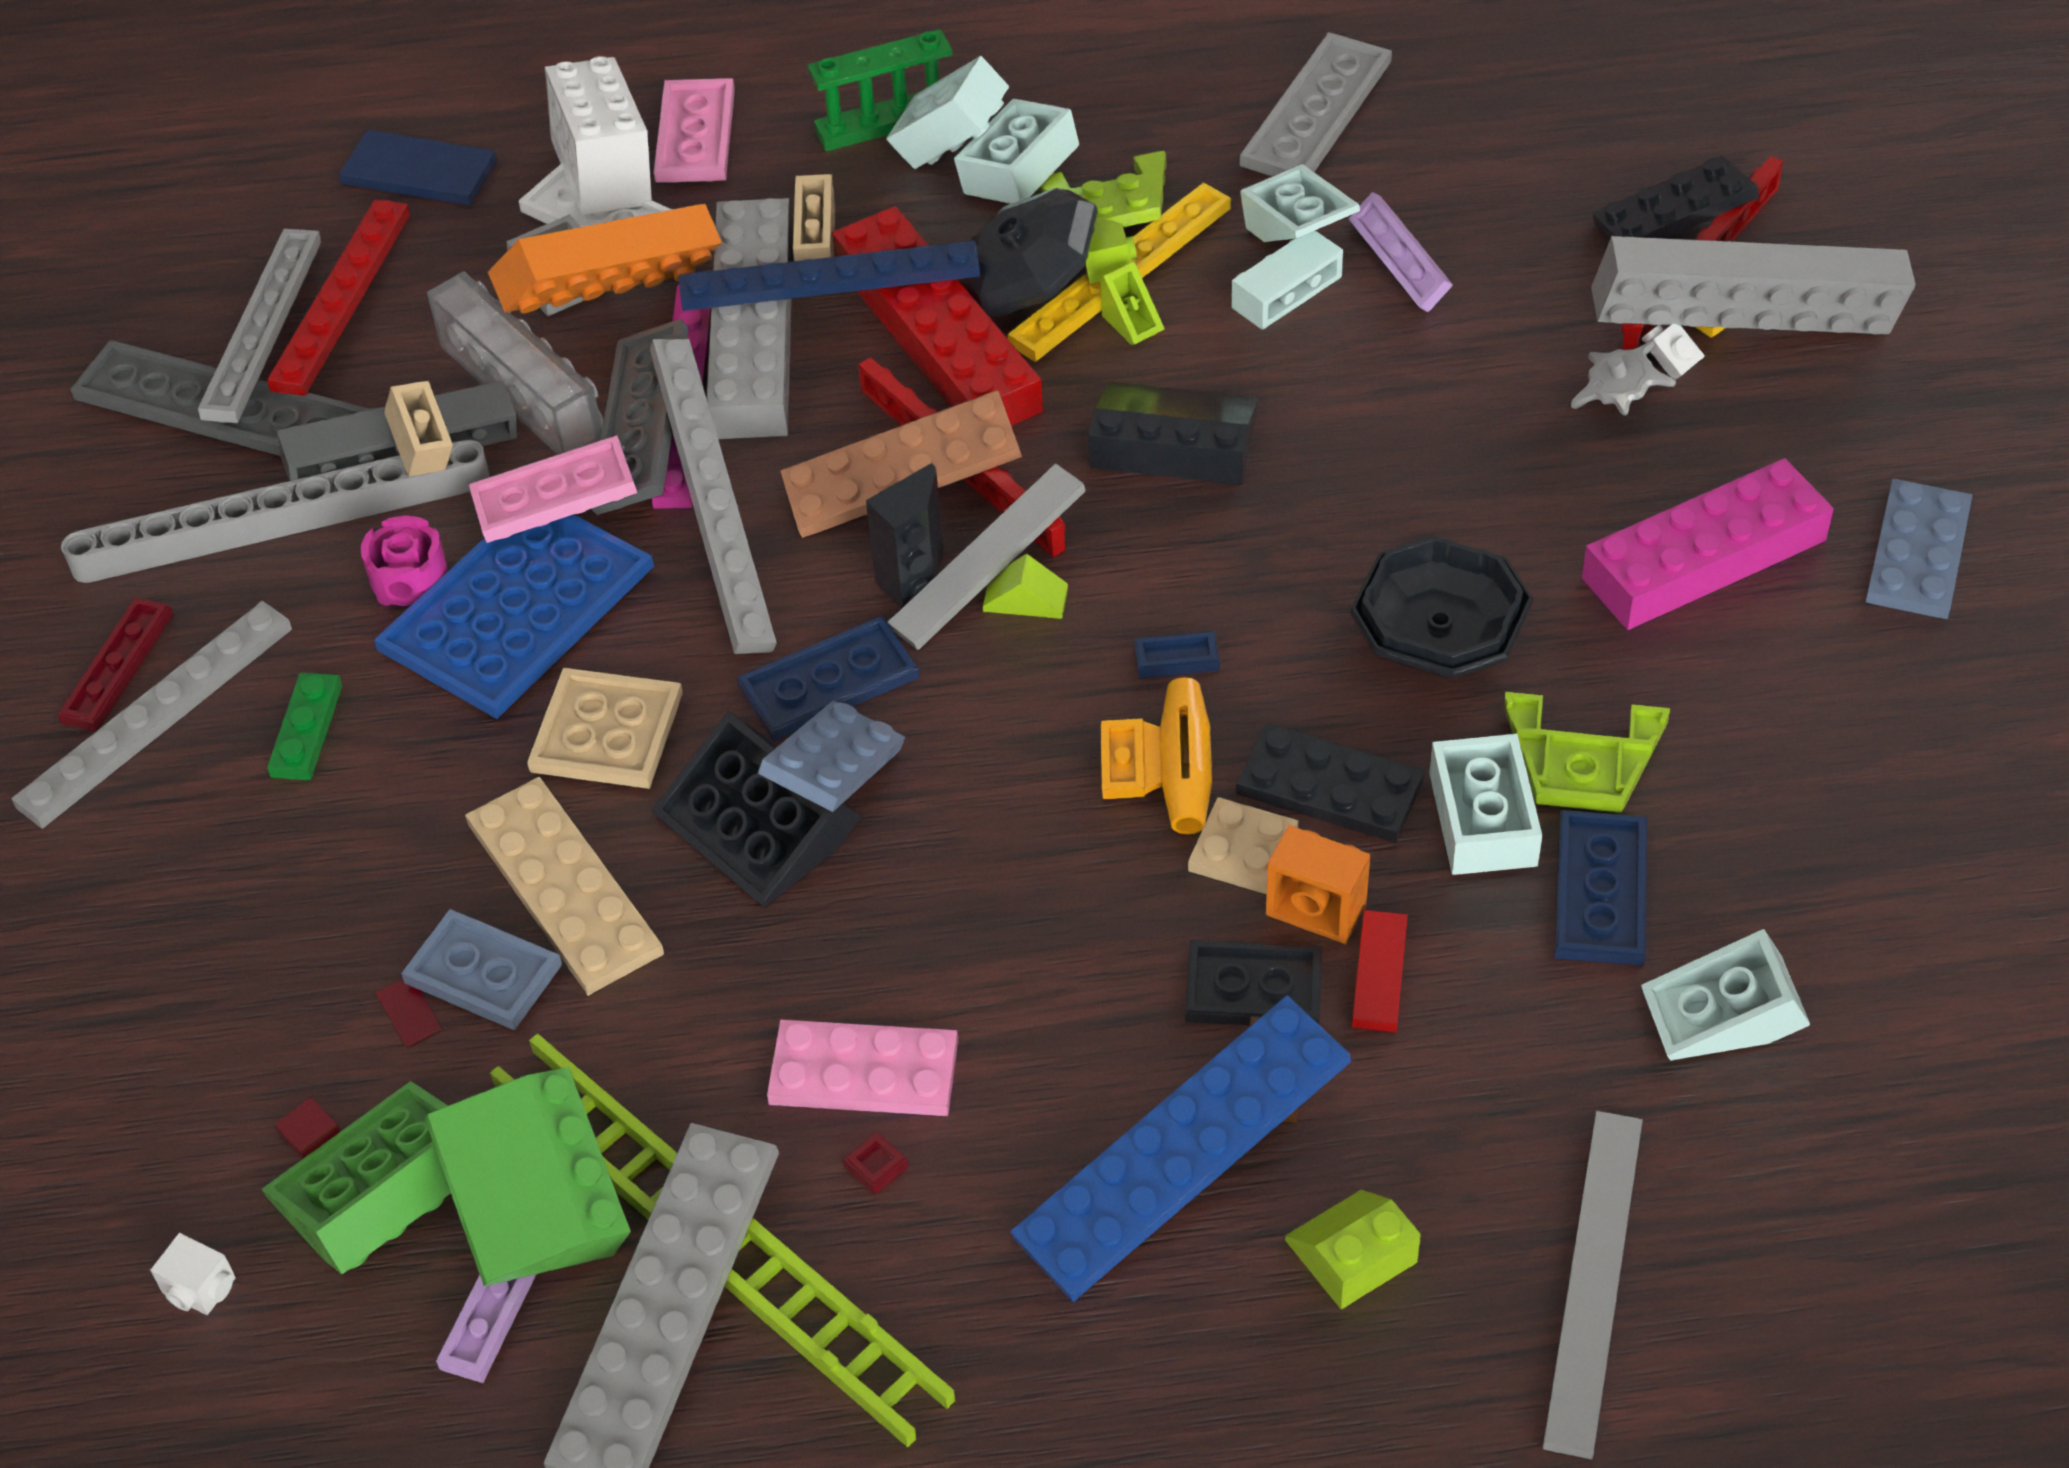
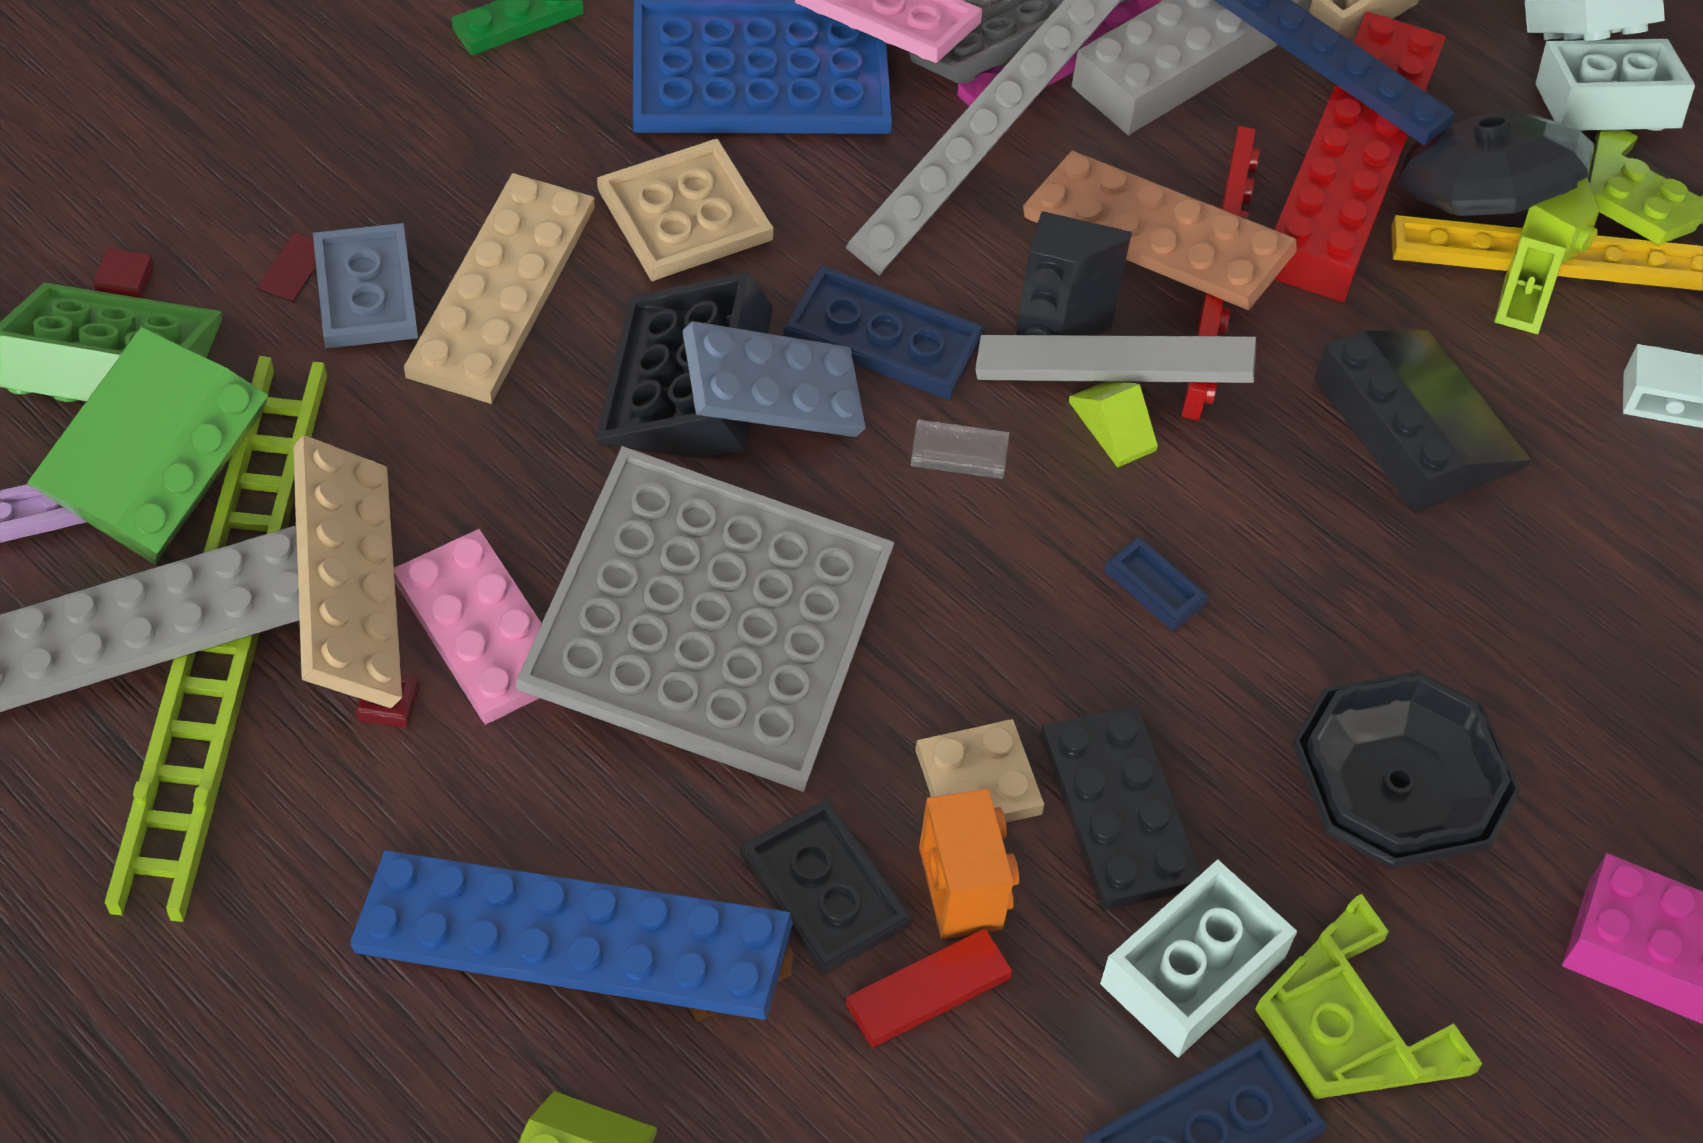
camera: 45 degrees right, 5 degrees up
(756, 1115) = (346, 573): none -> tan plate
(969, 695) = (960, 449): none -> clear tile
(987, 919) = (707, 618): none -> light grey plate
(1172, 756) = (1018, 645): light orange plate -> none

